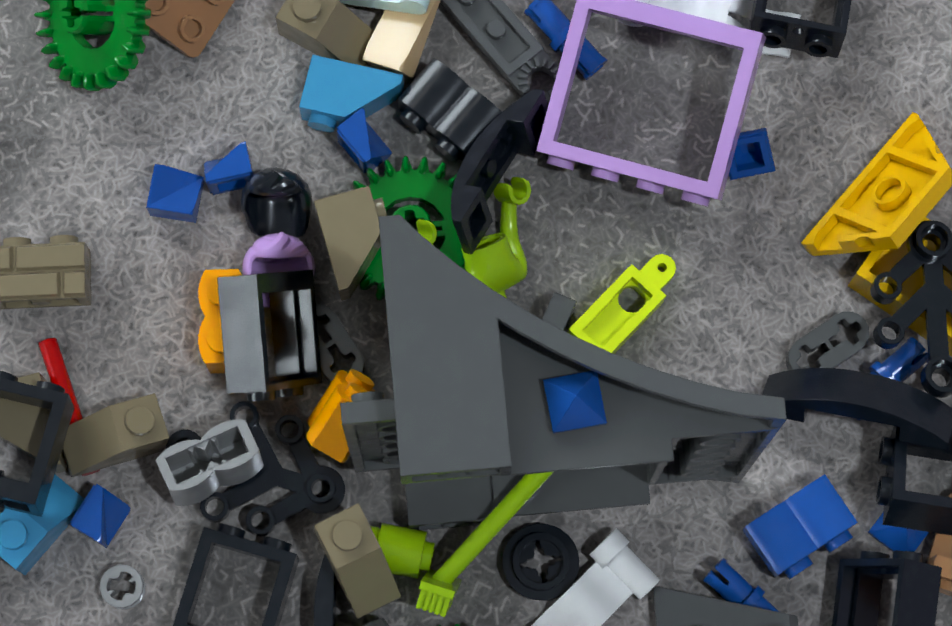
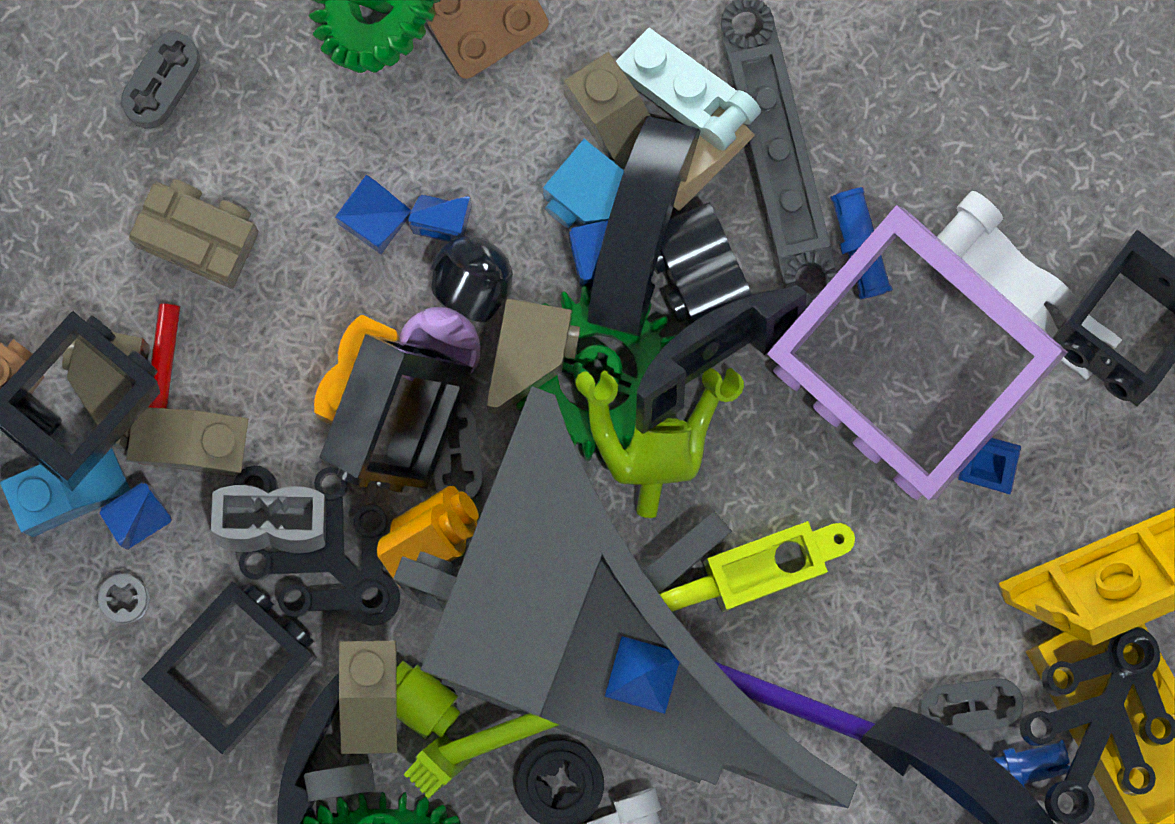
camera: 25 degrees right, 5 degrees up
(389, 100) = (638, 225): none -> black slope

